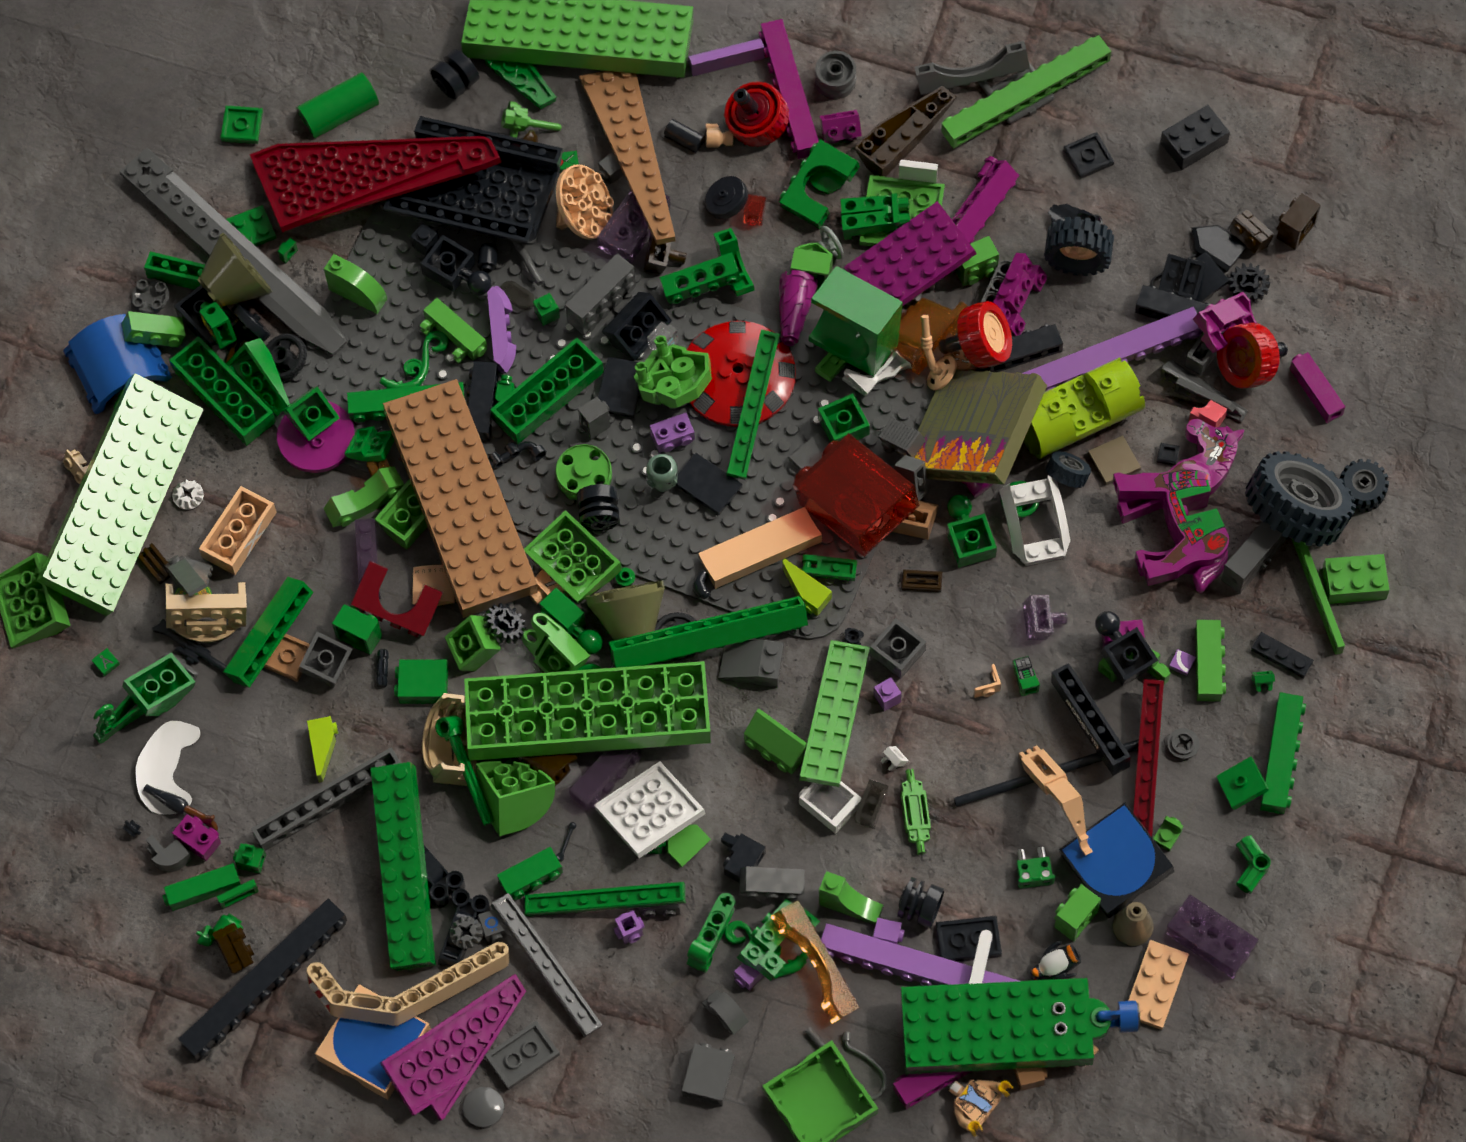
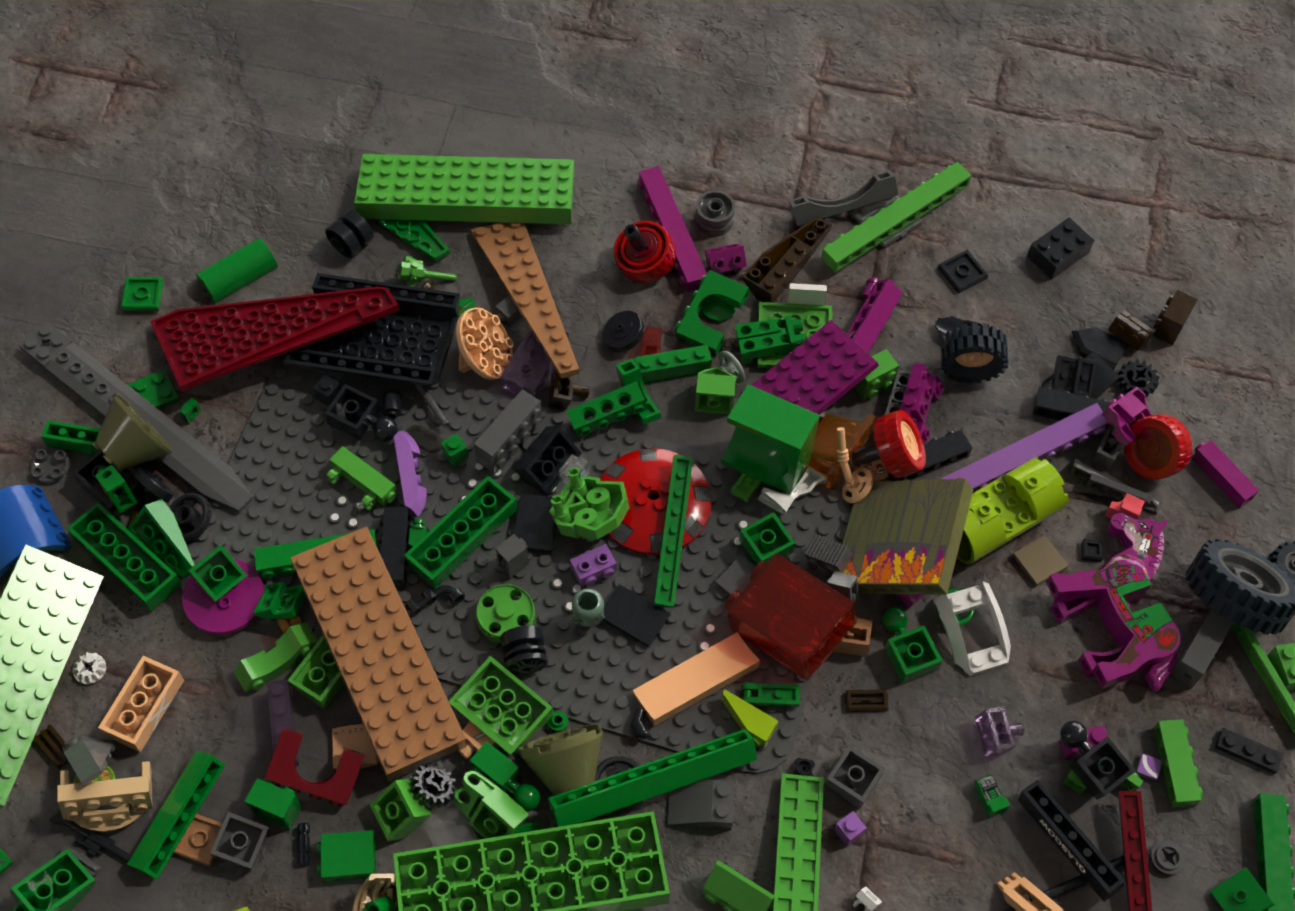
camera: 10 degrees left, 5 degrees down
(153, 329) = (50, 498): bright green brick -> none
(354, 284) = (257, 438): bright green brick -> none
(422, 366) = (331, 516): green plant -> none
(684, 135) = (576, 277): black brick -> none
(715, 137) = (606, 277): light nougat piece -> none
(726, 57) = (609, 204): medium lavender brick -> none
(773, 235) = (674, 363): none -> green brick
(795, 303) = (703, 424): magenta cone -> none
(990, 689) = (956, 814): light nougat bracket -> none
(1068, 469) = (999, 573): black wheel -> none
(1263, 677) = (1237, 777): green tile -> none

